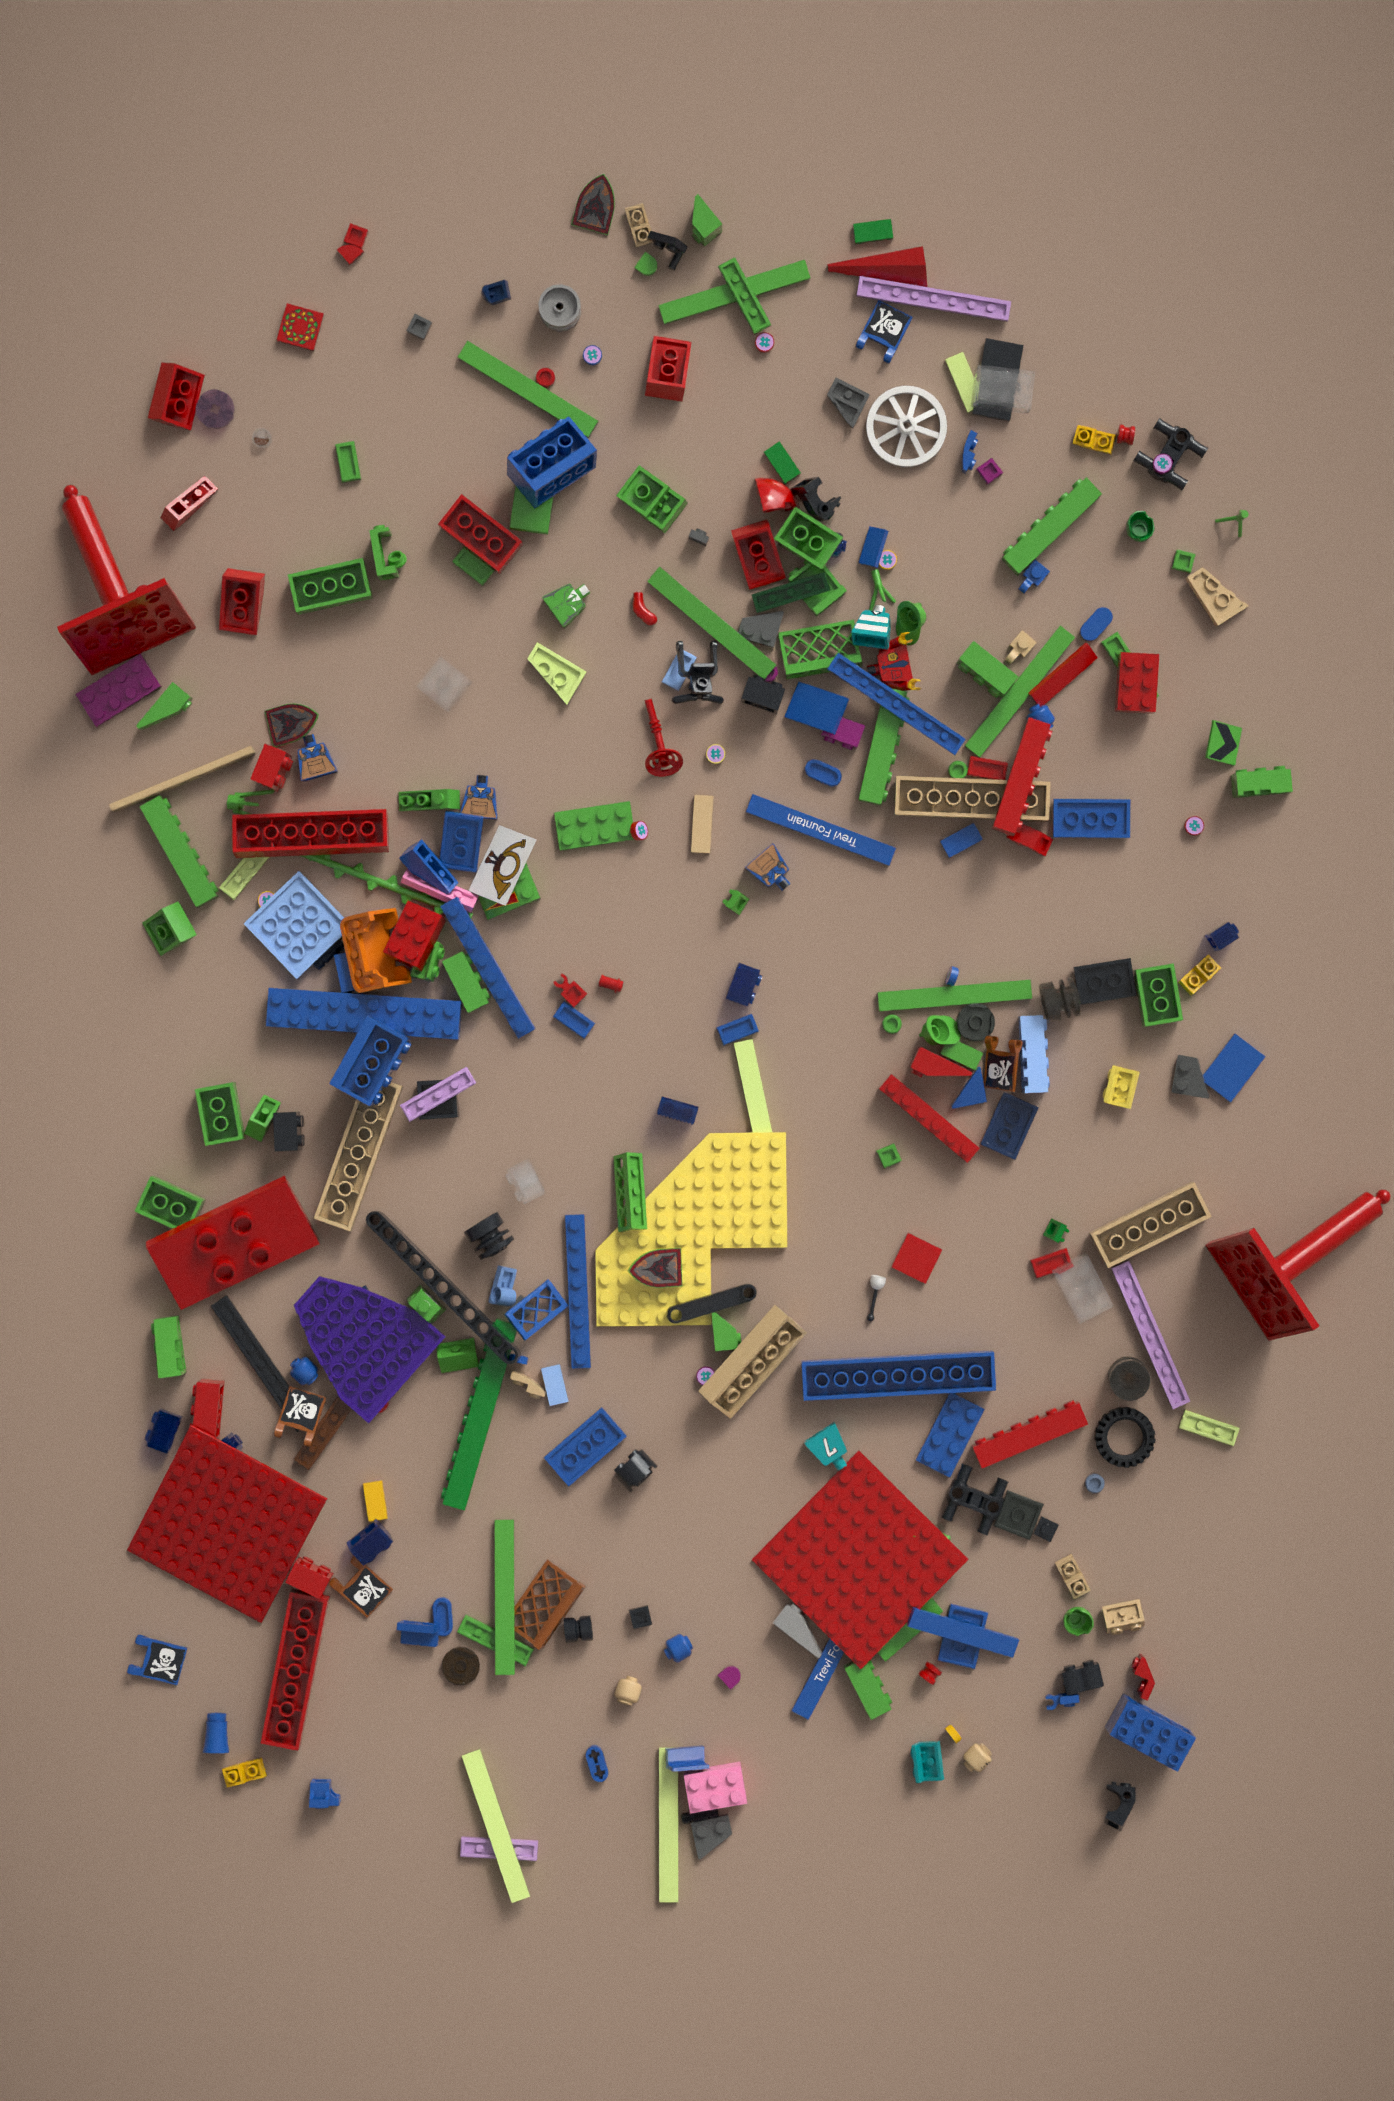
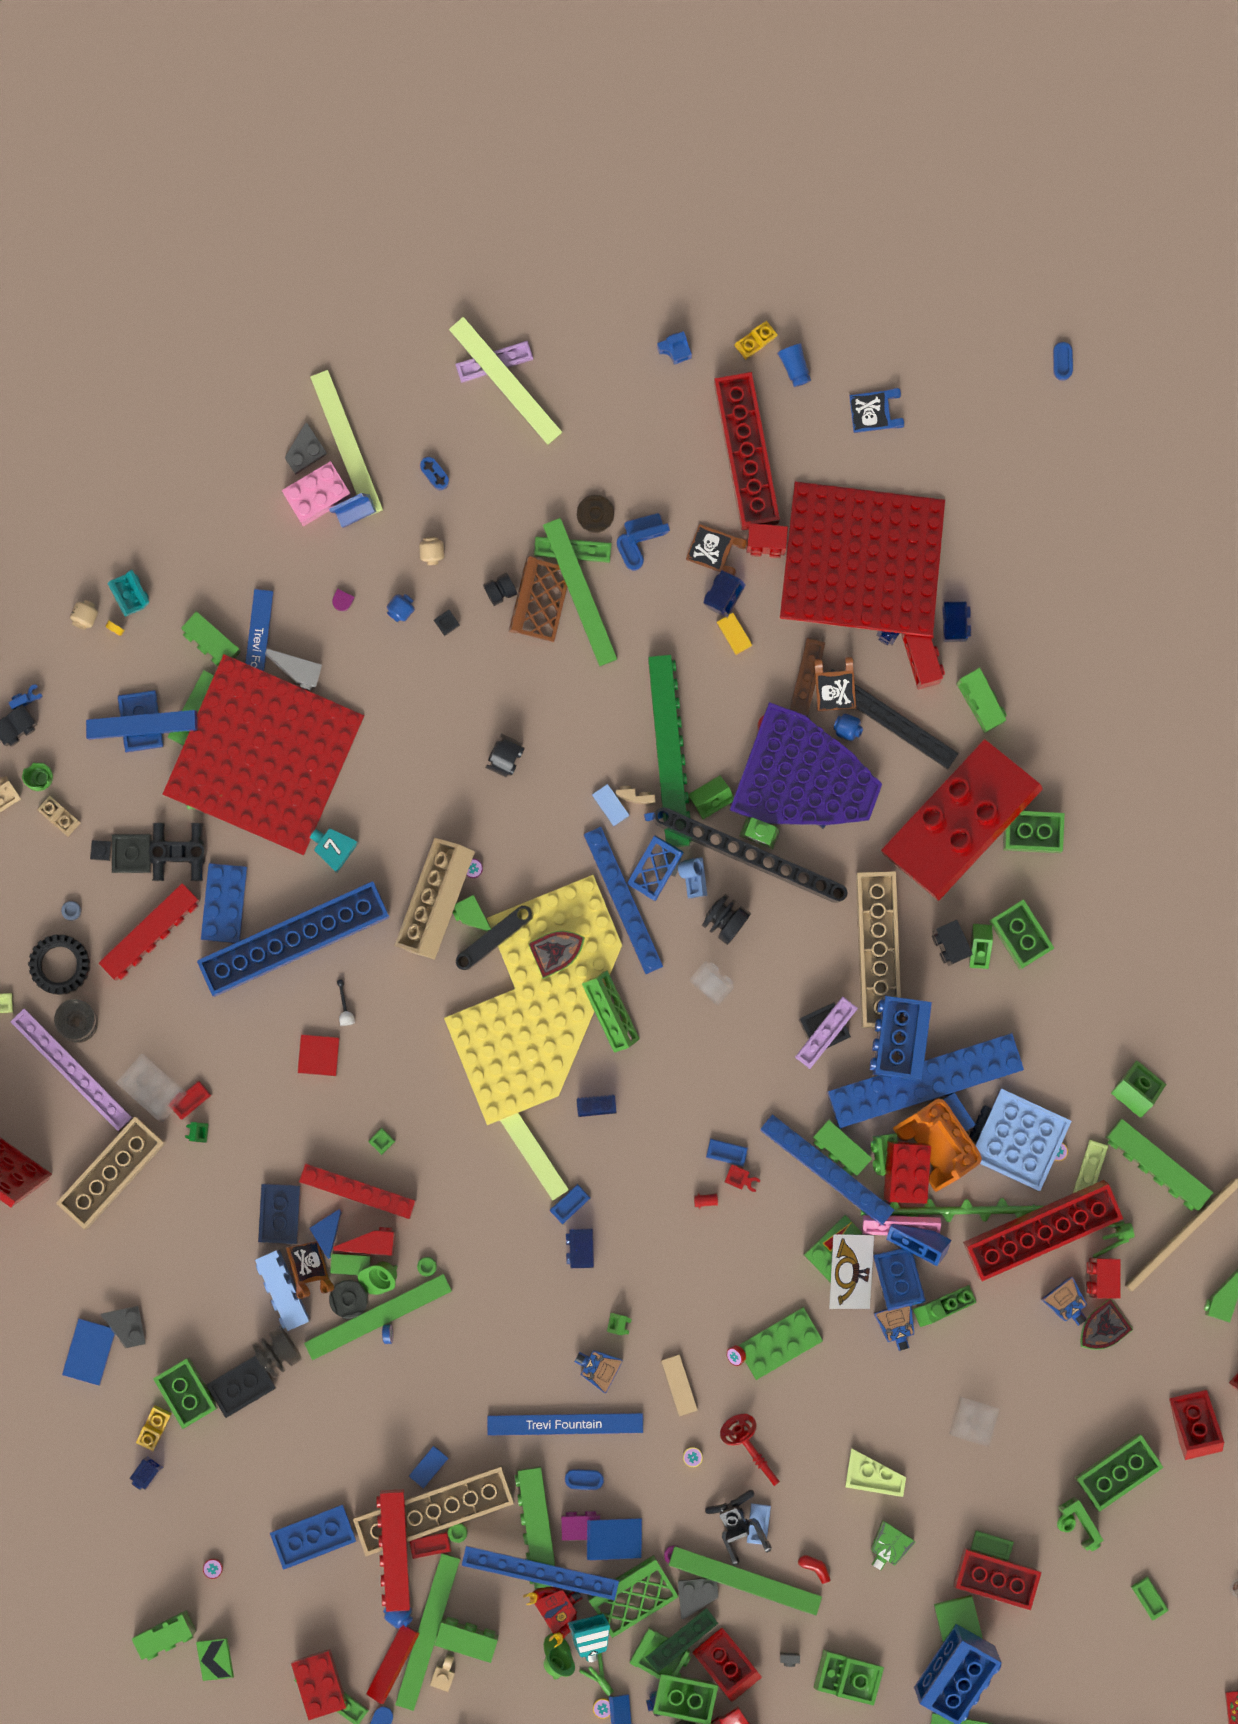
camera: 160 degrees right, 5 degrees down
(585, 1446) = (559, 759): blue plate -> none
(699, 1816) = (331, 456): black axle -> none
(763, 694) = (670, 1532): black brick -> none
(930, 1673) = (157, 675): red wheel -> none
(1032, 839) = (361, 1494): red slope -> none
(1121, 1087) = (188, 1292): light yellow bracket -> none

